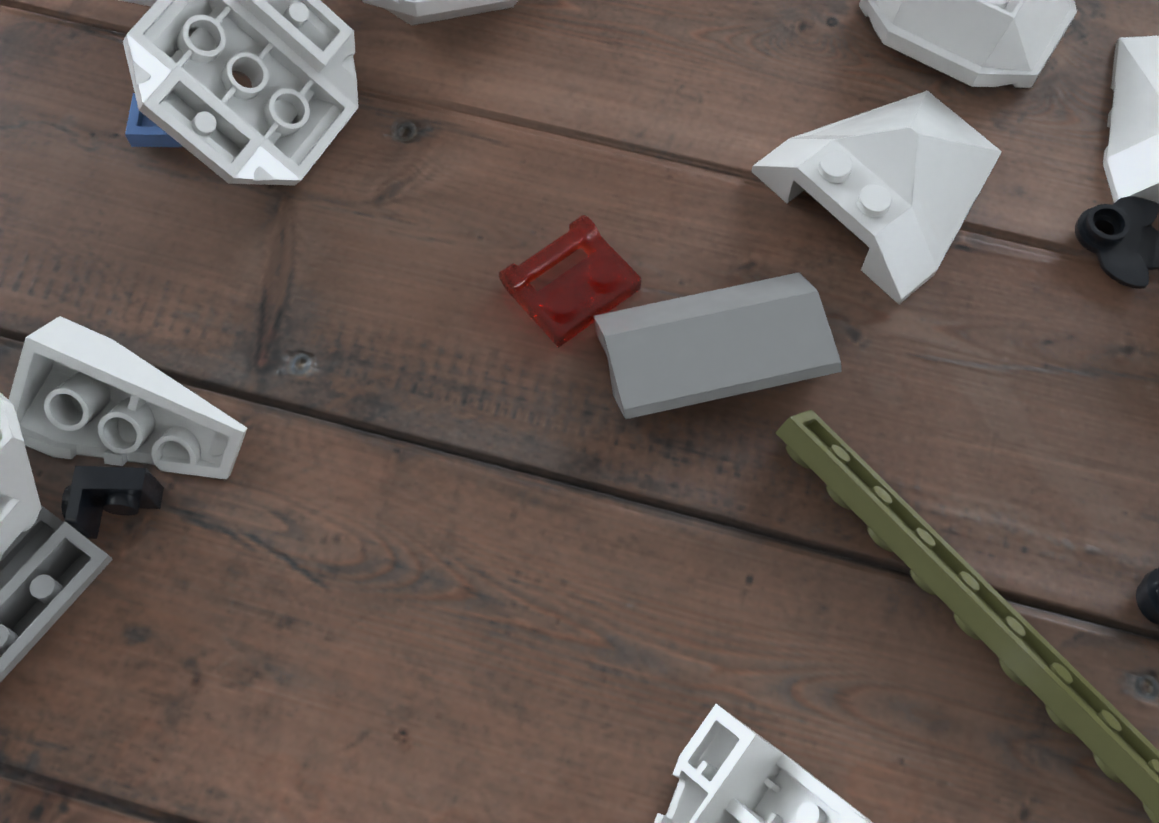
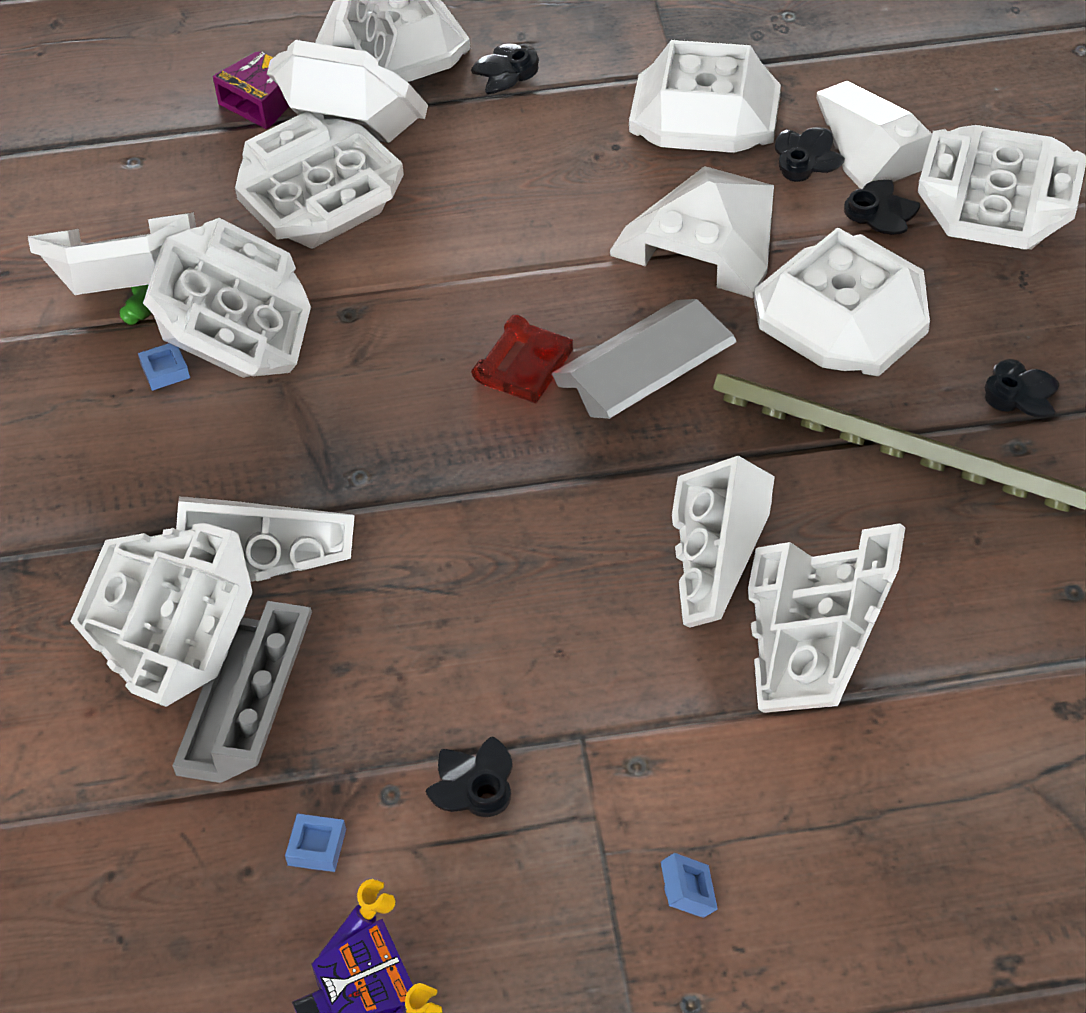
camera: 20 degrees left, 15 degrees down
(108, 489) = (280, 583): black bracket -> none
(690, 646) = (719, 523): none -> white wedge
(1004, 413) = (845, 304): none -> white piece
(1065, 122) = (806, 153): none -> black plate

